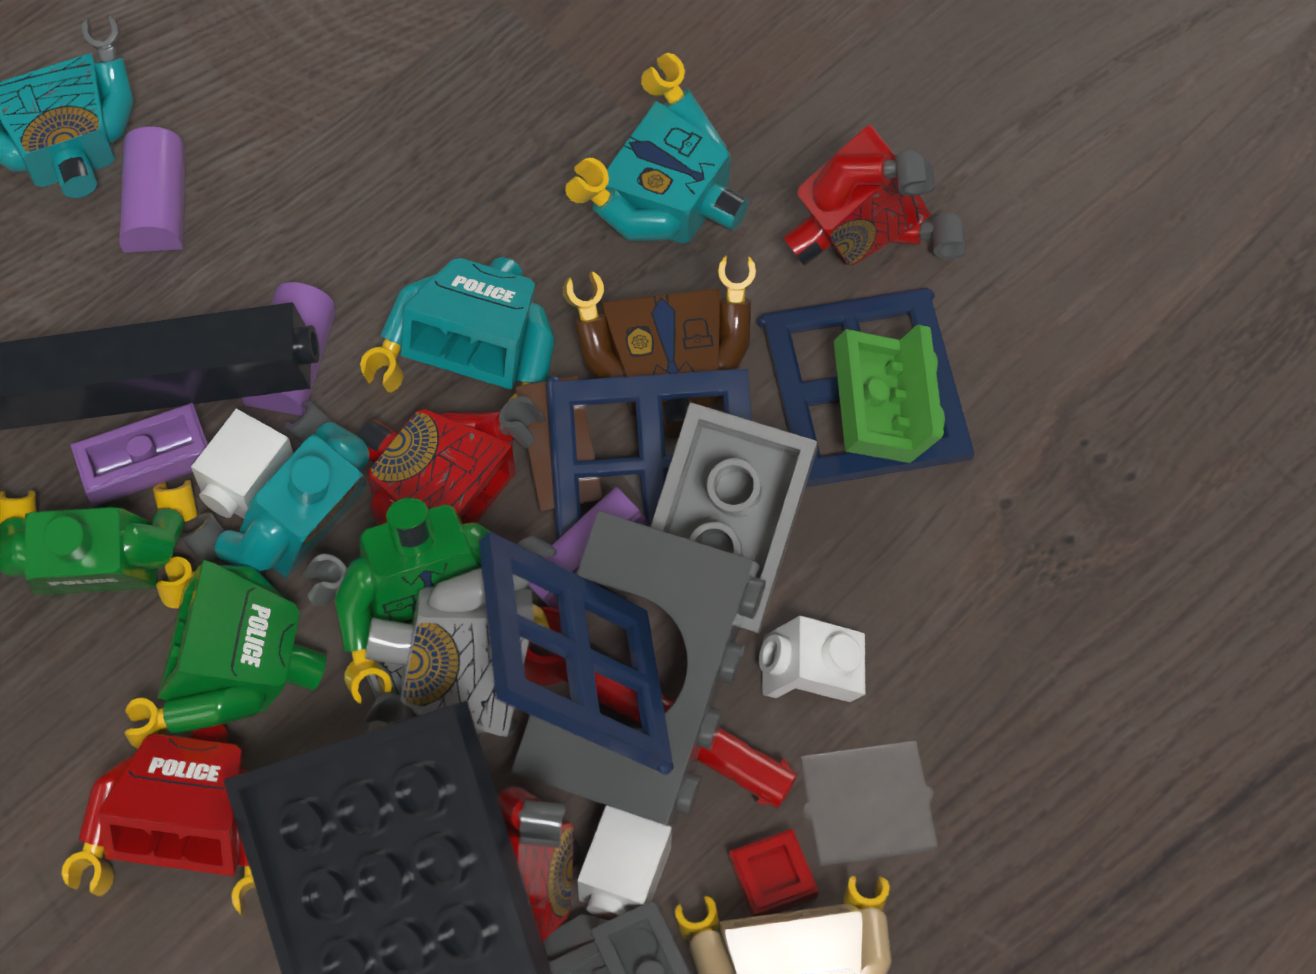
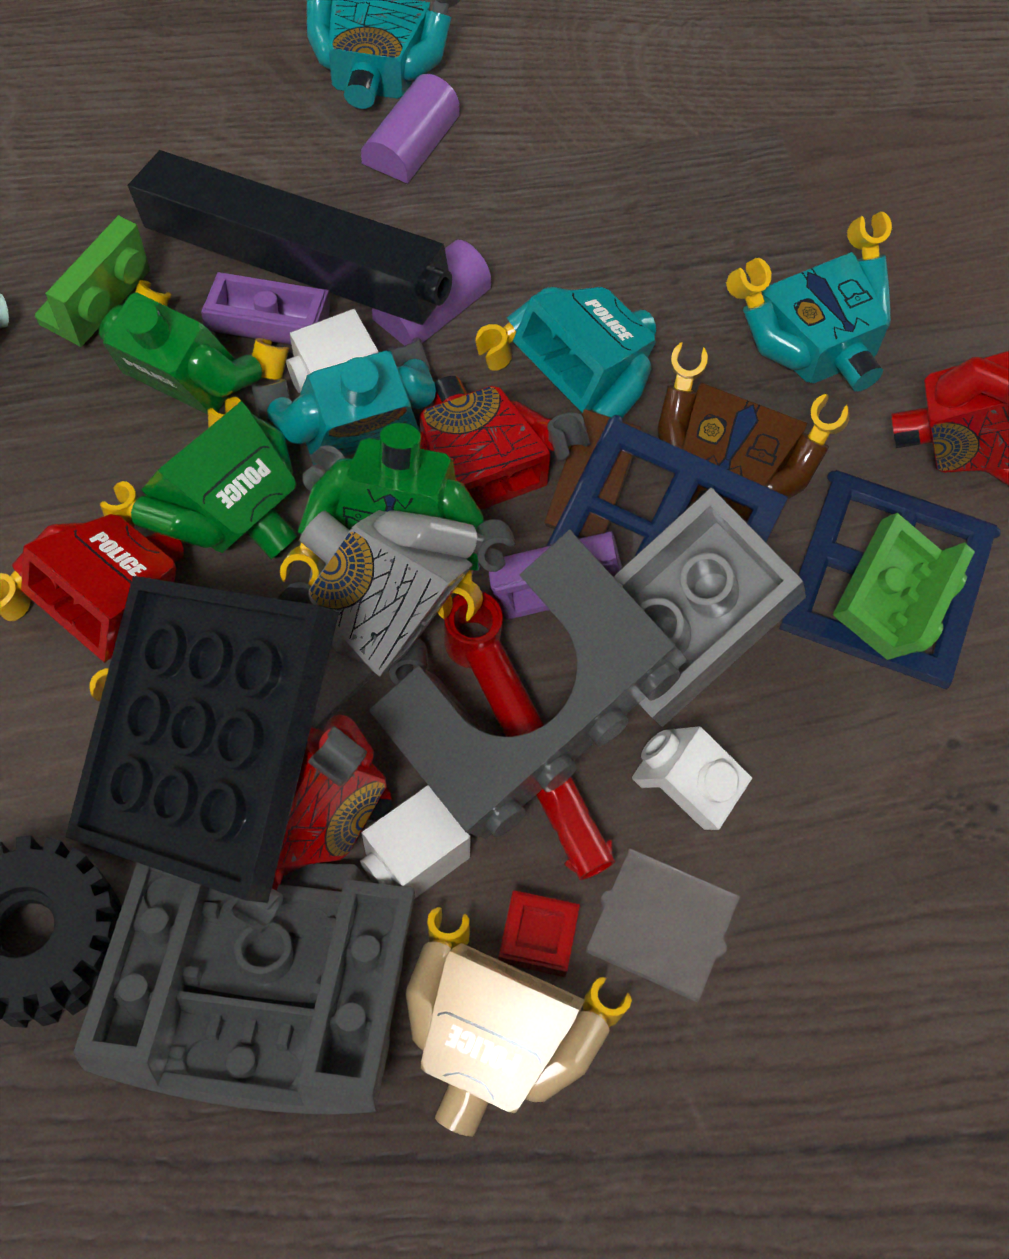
camera: 30 degrees right, 0 degrees up
(574, 595) = (435, 686): dark blue window -> none

